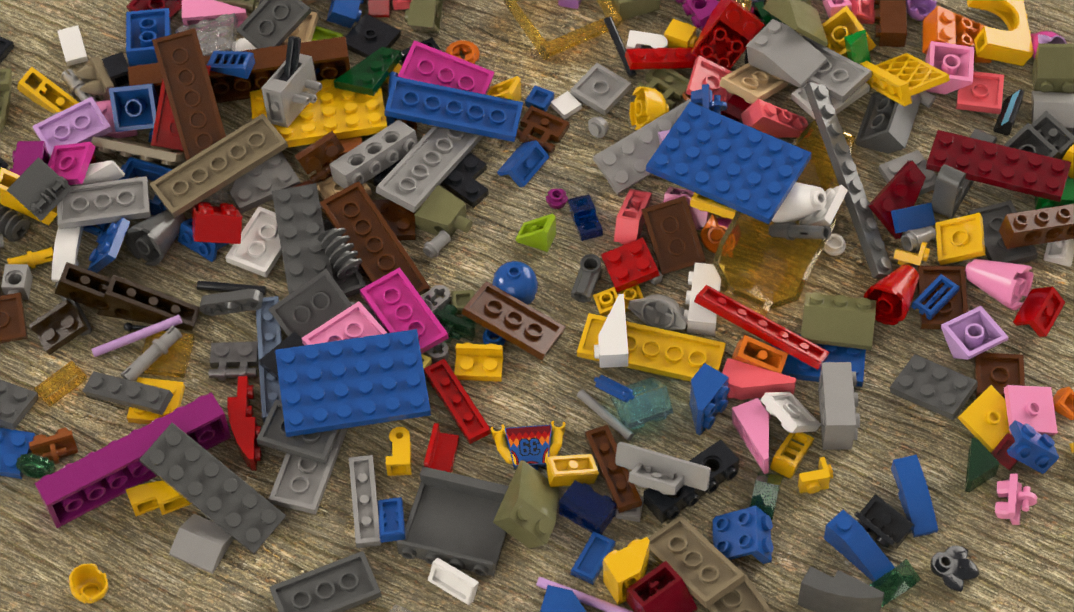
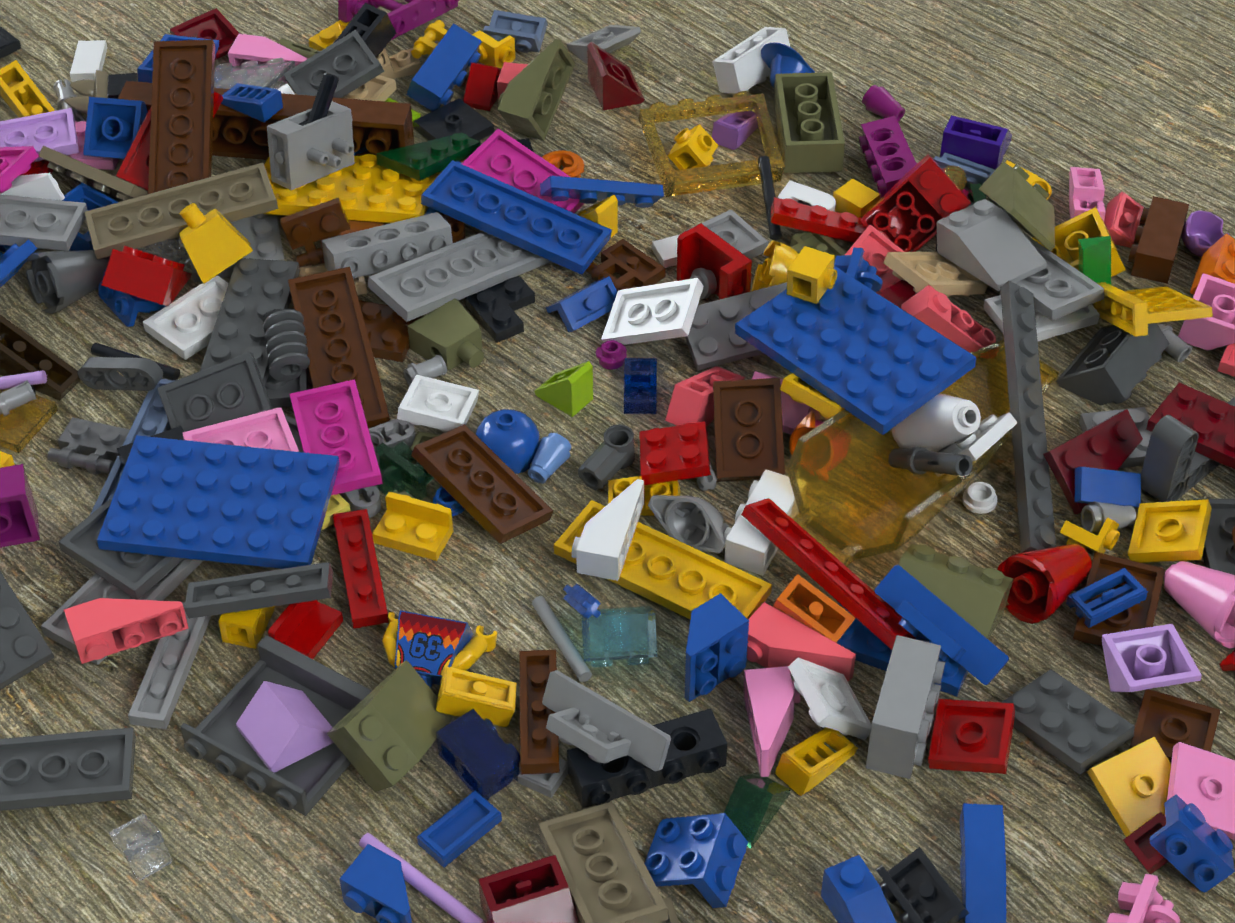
camera: 15 degrees right, 10 degrees down
(244, 424) = (57, 516): red slope -> none
(252, 185) = (211, 241): none -> yellow torso
(321, 486) = (120, 624): none -> coral slope
(391, 519) = (194, 697): blue plate -> none
(407, 438) = (259, 590): none -> dark grey plate
(453, 581) = (239, 804): white tile -> none
(458, 268) = (437, 404): none -> white plate
(458, 524) = (283, 726): none -> lavender slope
(497, 75) = (591, 190): none -> blue plate
(539, 98) = (639, 234): blue plate -> none
(547, 288) = (549, 457): none -> medium blue cone
(552, 20) = (692, 148): none -> yellow brick
(577, 162) = (653, 312): none -> white plate
(618, 115) = (706, 250): none -> red panel
(625, 568) = (495, 846): yellow slope -> none
(687, 119) = (811, 275): none -> yellow brick
(817, 480) = (835, 805): yellow bracket -> none
(842, 345) = (941, 625): none -> blue bracket
(882, 412) = (972, 736): none -> red plate
(980, 465) = (1103, 853): clear green slope -> none

